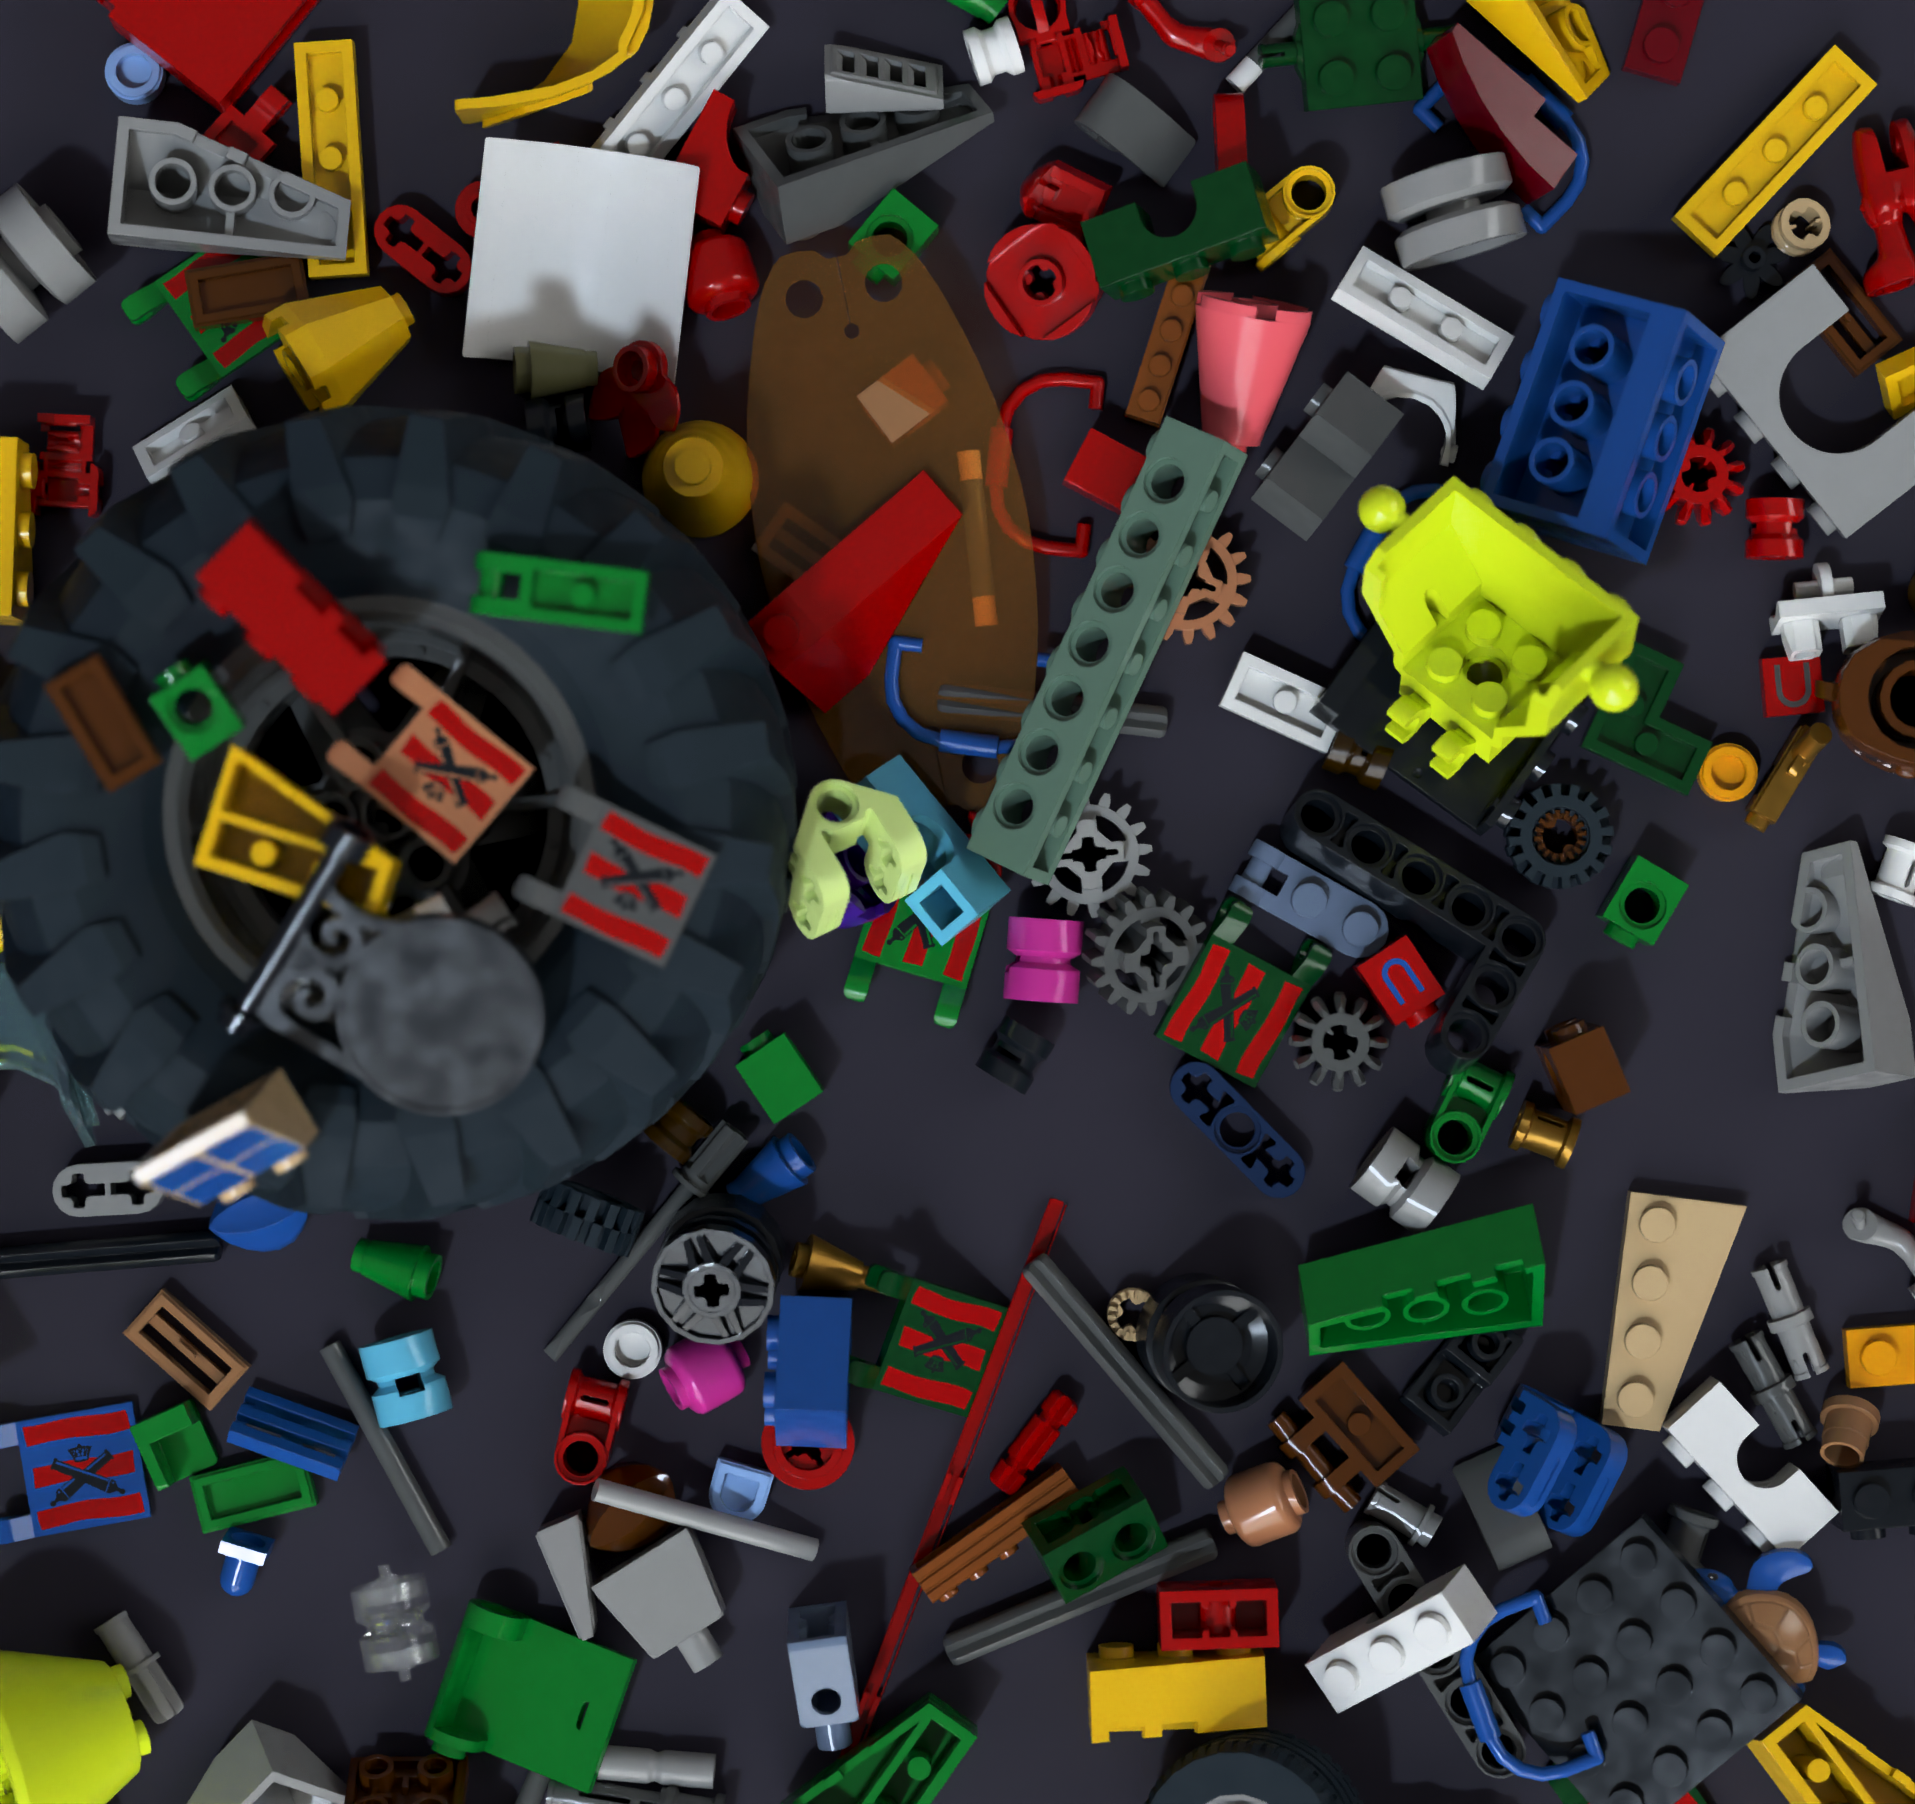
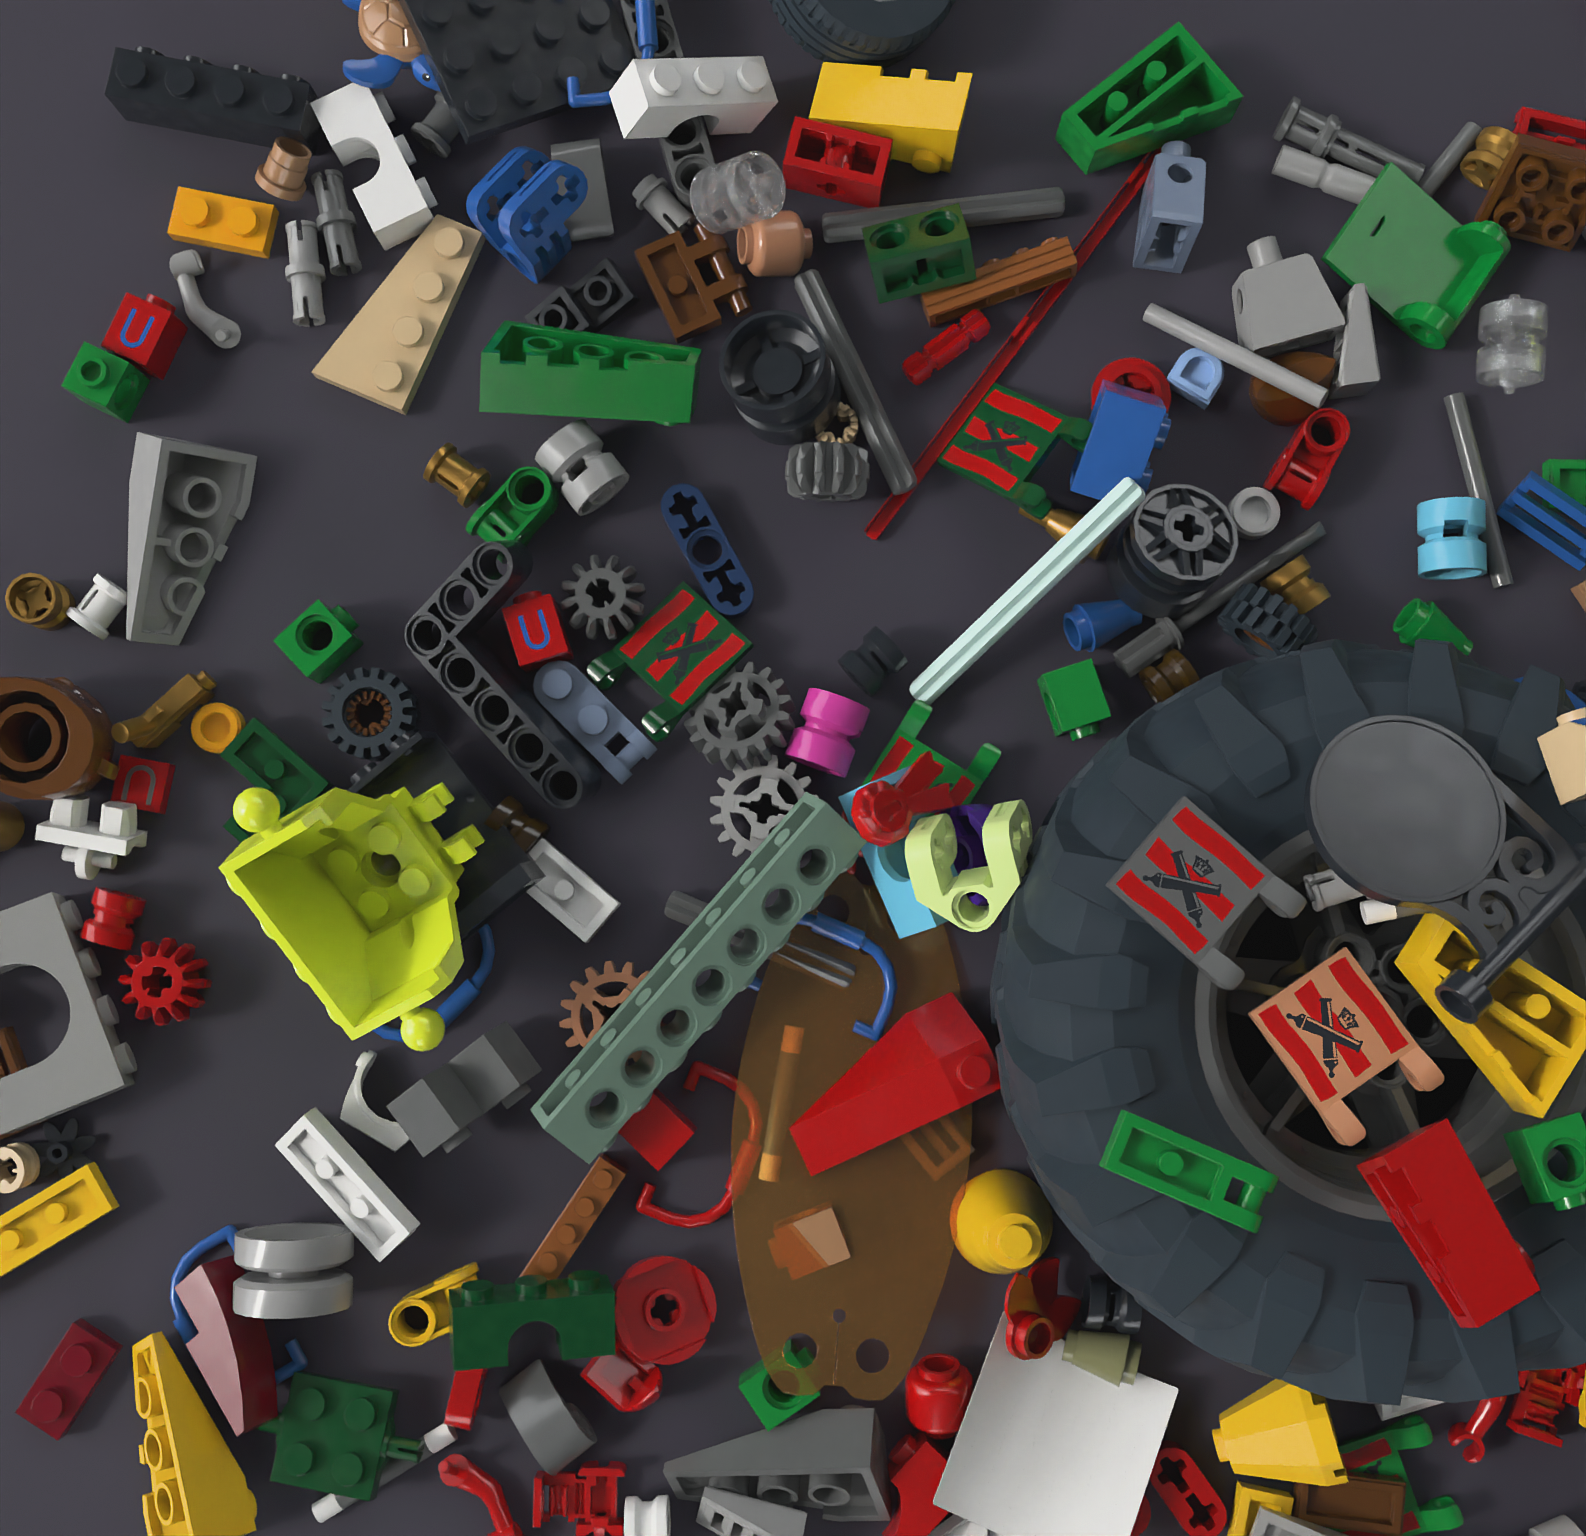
camera: 165 degrees left, 5 degrees down
(122, 436) = (1476, 1428): none -> red piece
(564, 1271) = (1295, 587): none -> pearl gold wheel
(704, 1374) = (1205, 468): dark pink head -> none
(867, 1176) = (1028, 590): none -> light aqua axle
(956, 884) = (885, 811): none -> red piece
(1127, 1253) = (827, 471): none -> dark grey gear
(1244, 361) = (510, 1190): coral cone -> none
(1317, 1537) = (738, 192): none -> clear wheel
(1581, 1065) = (406, 516): reddish brown brick -> none
(1602, 419) = (216, 1056): blue brick -> none

